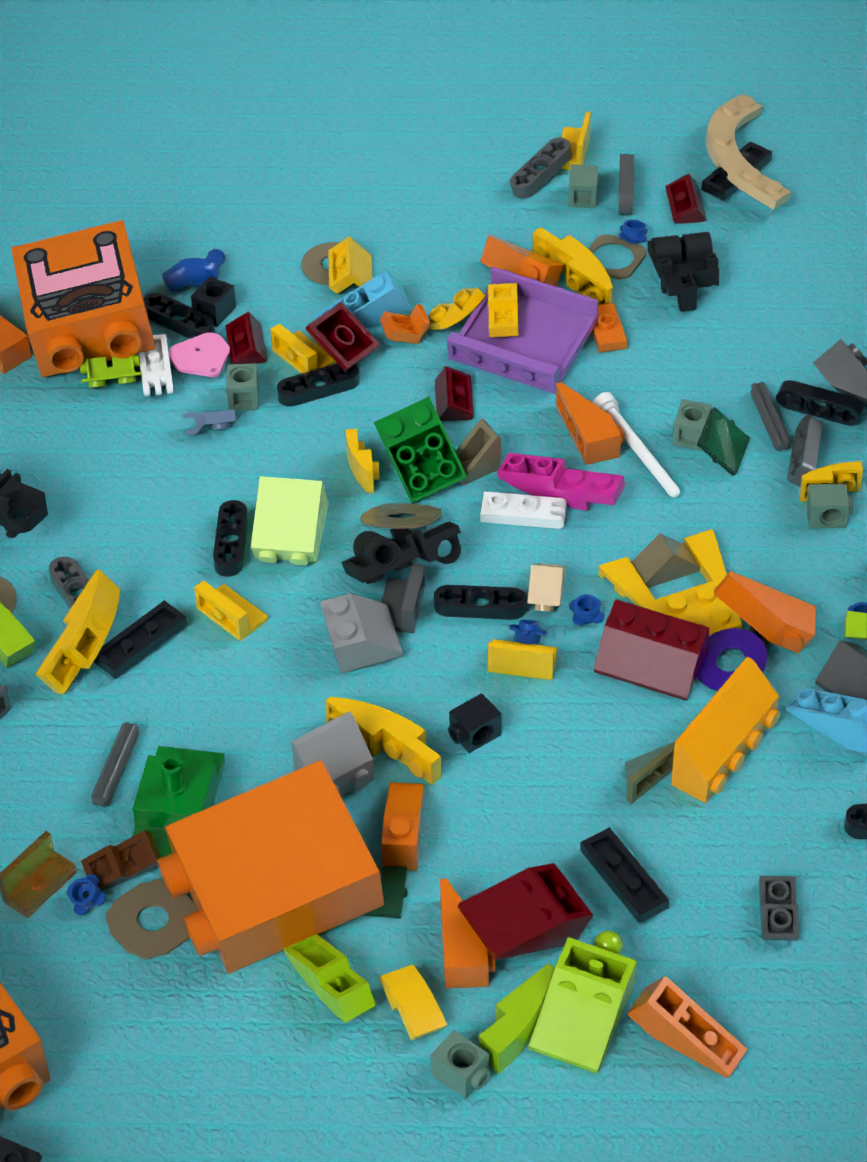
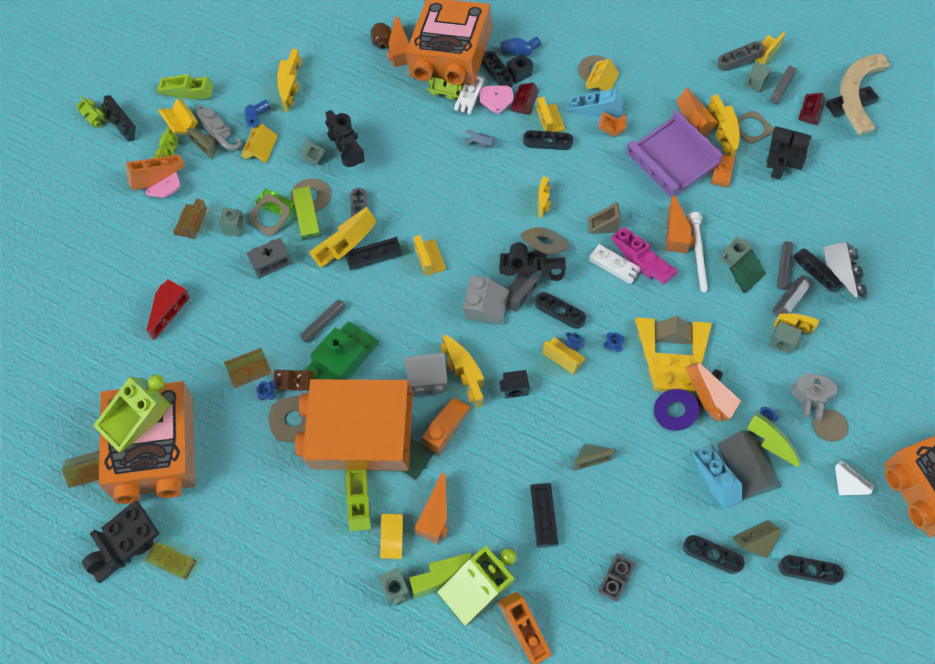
camera: 25 degrees right, 15 degrees up
(236, 547) = (452, 220): black beam -> none
(242, 386) = (506, 126): sand green brick -> none
(289, 520) = (484, 218): yellowish green slope -> none
(342, 336) = (572, 119): dark red slope -> none
(420, 450) = (577, 205): green slope -> none
(448, 314) = (637, 127): yellow slope -> none
(453, 395) = (616, 177): dark red slope -> none
(503, 310) = (668, 138): yellow slope -> none
(527, 913) = (473, 517): dark red slope -> none
(546, 586) = (600, 316): tan slope -> none
(633, 231) = (771, 116): blue plate -> none
(651, 649) = (633, 385): slope -> none
(724, 732) = (645, 456): light orange slope -> none

